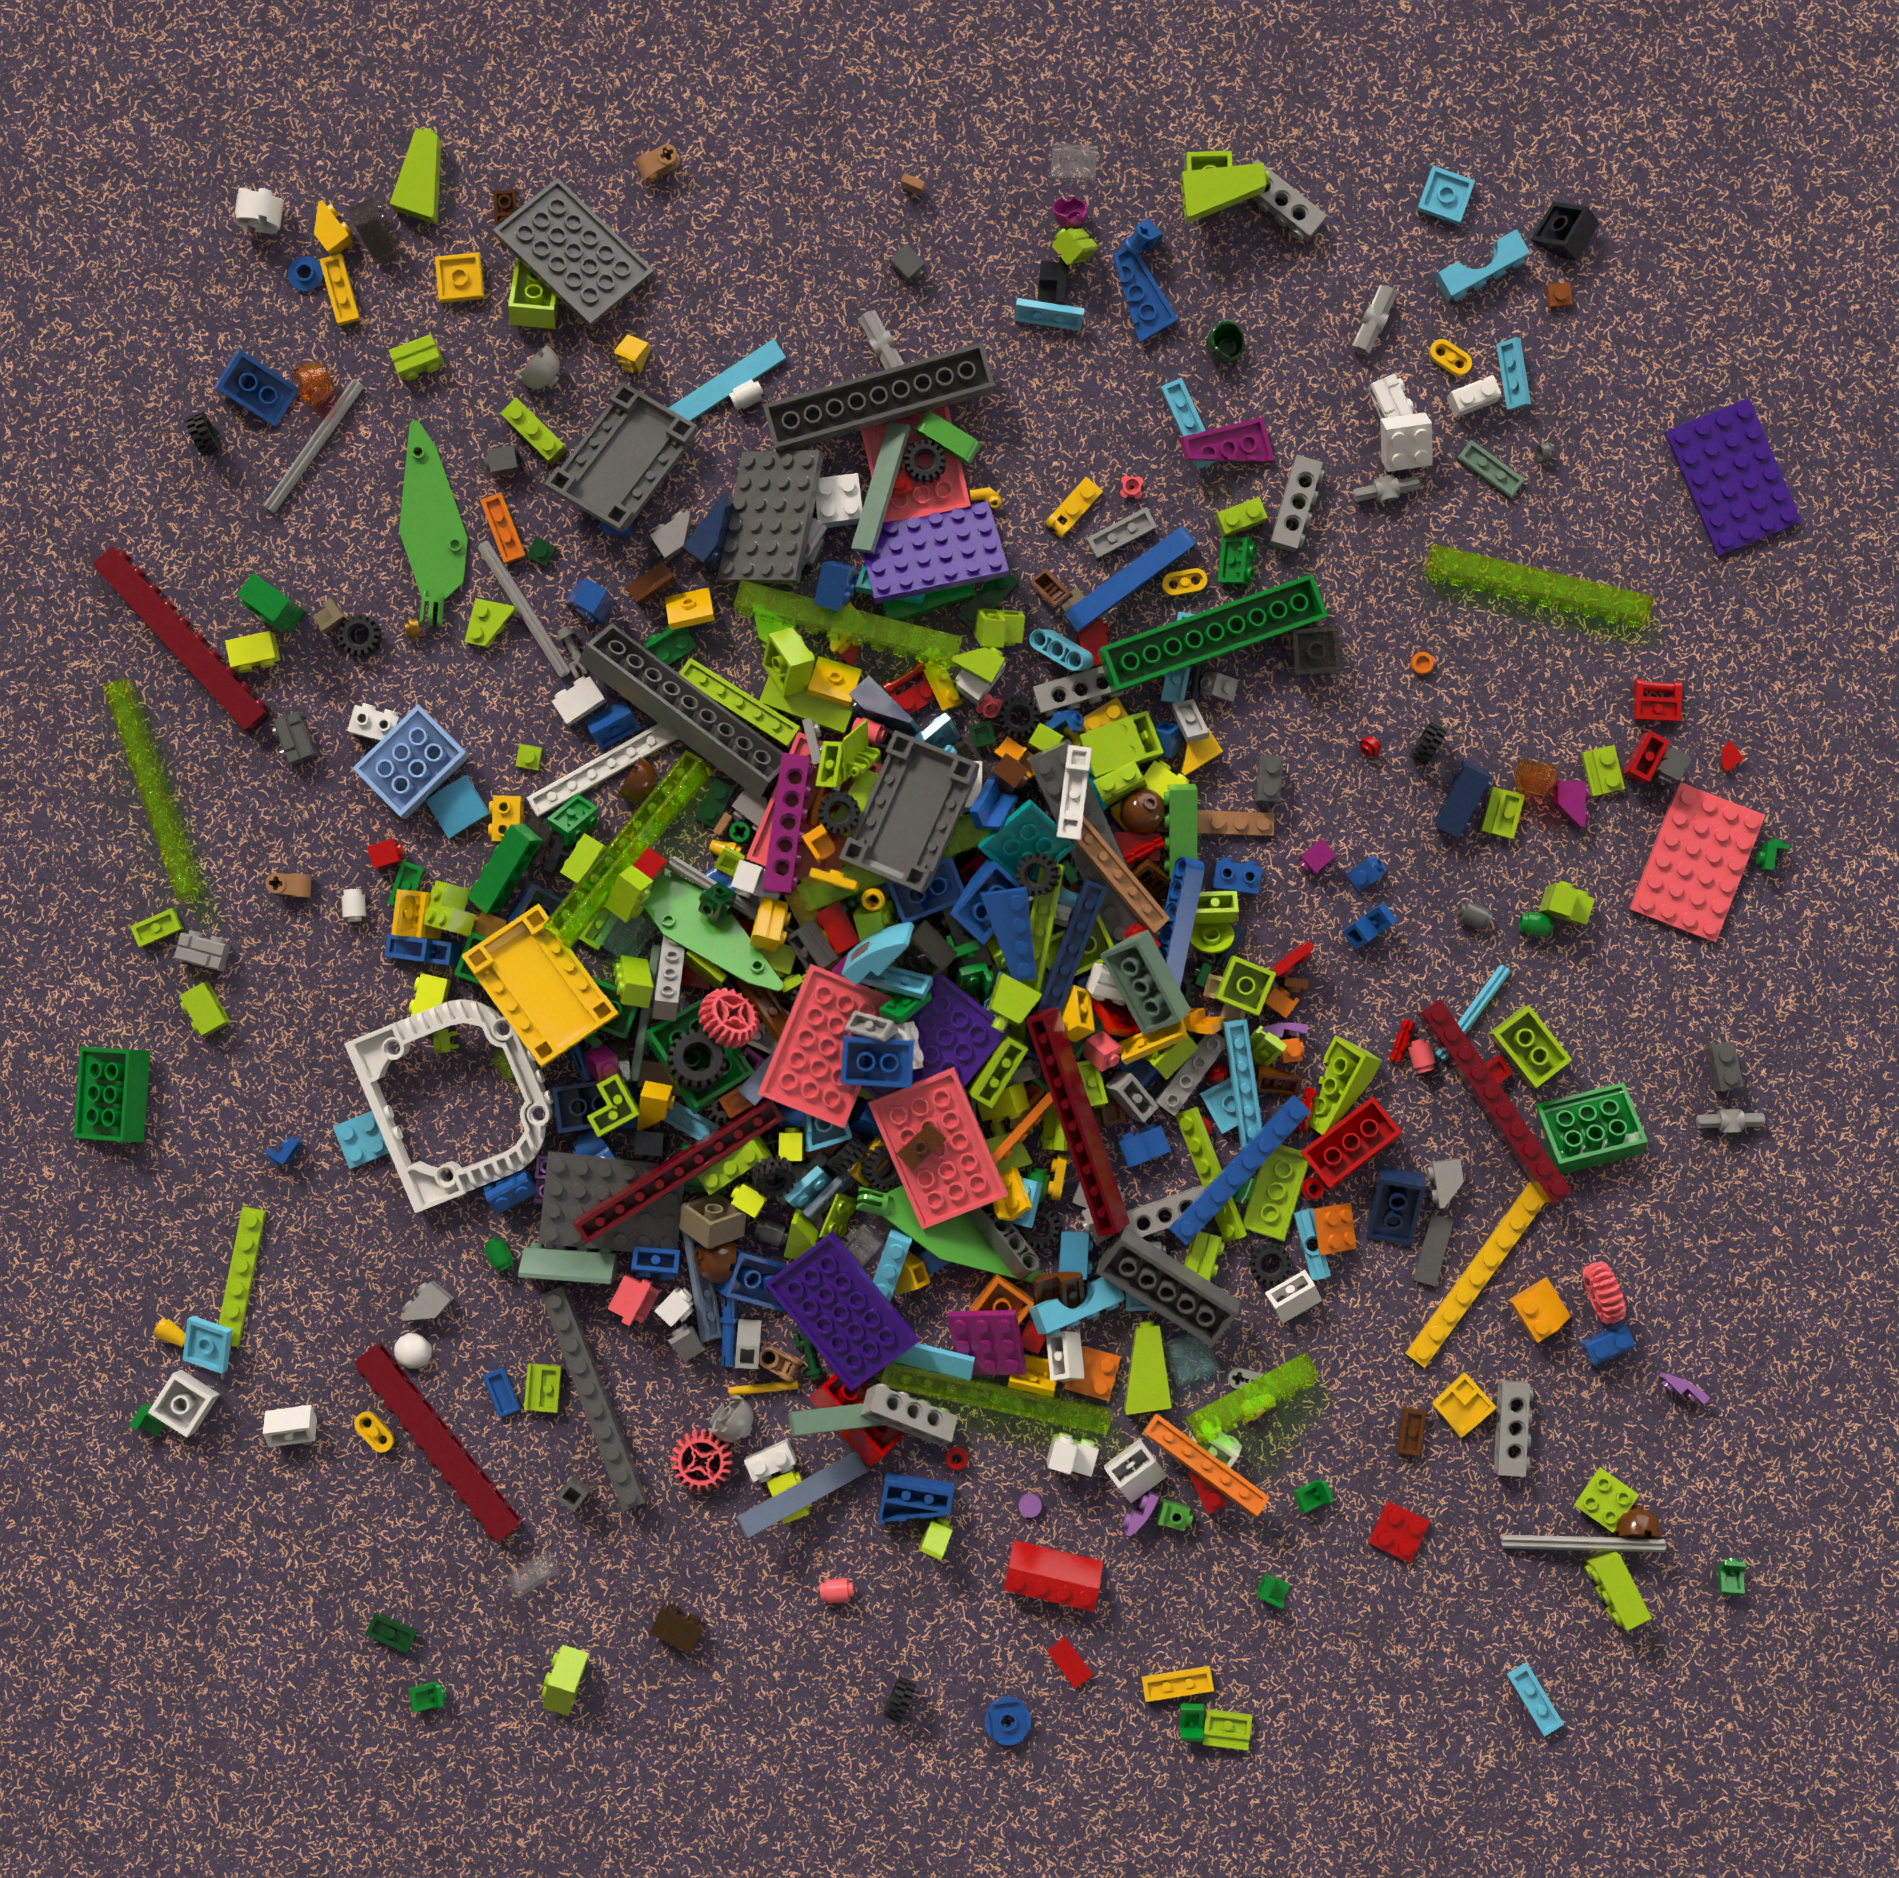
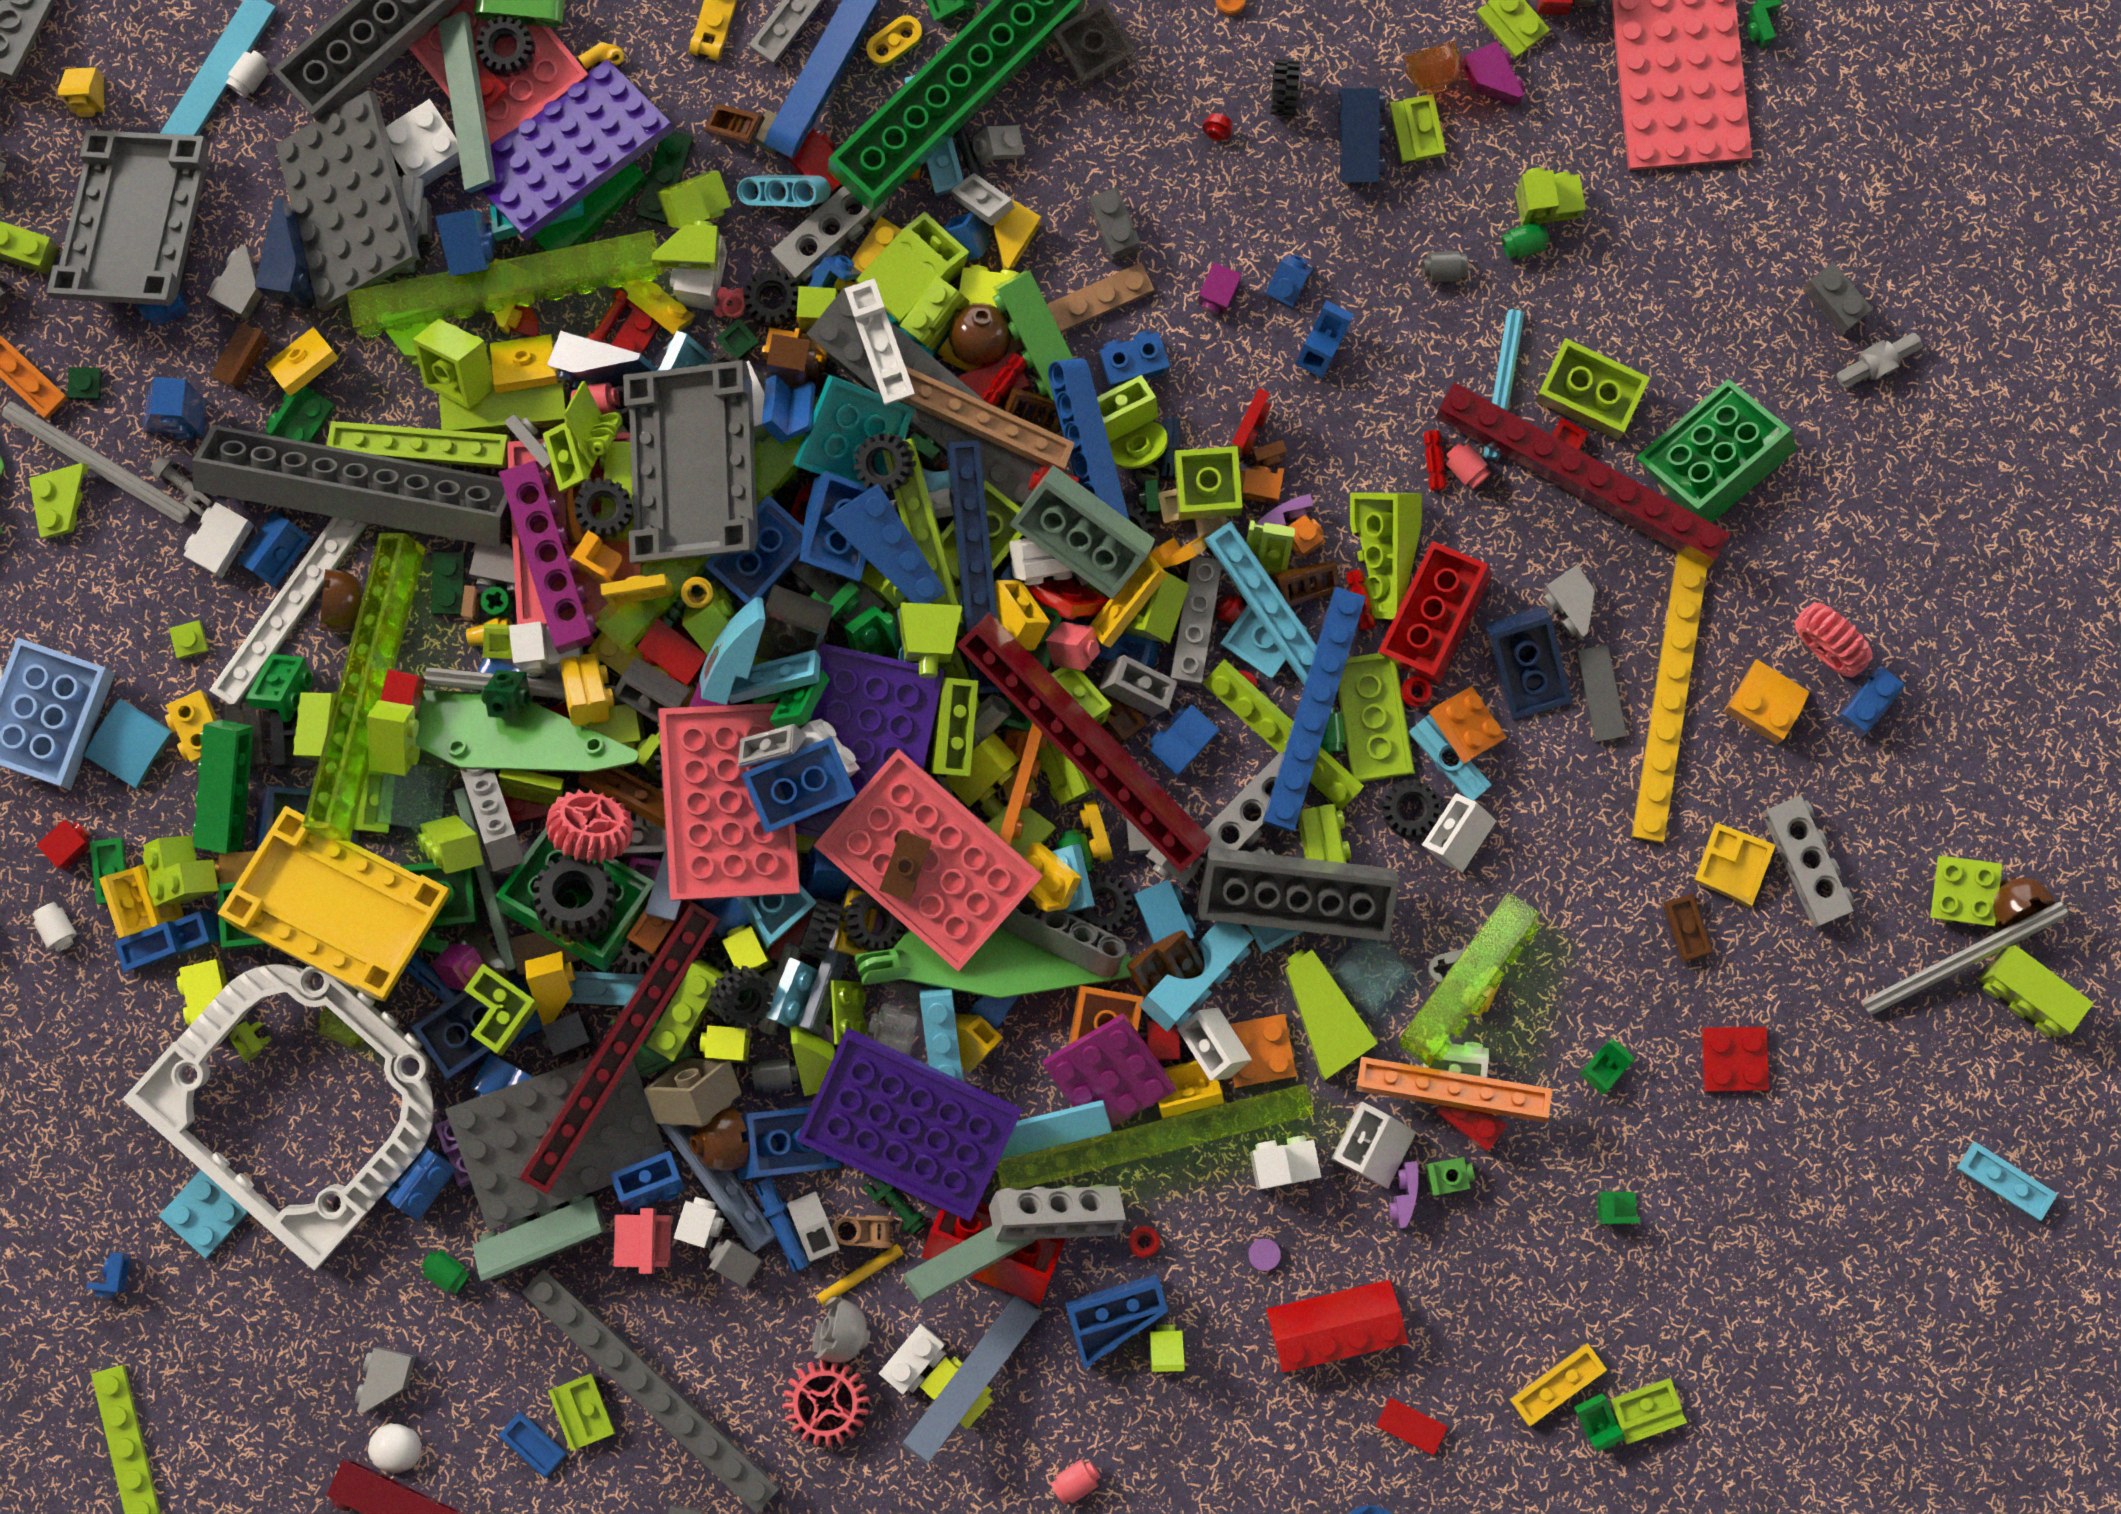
camera: 25 degrees left, 5 degrees down
(1679, 1385) = (1981, 708): medium lavender slope -> none

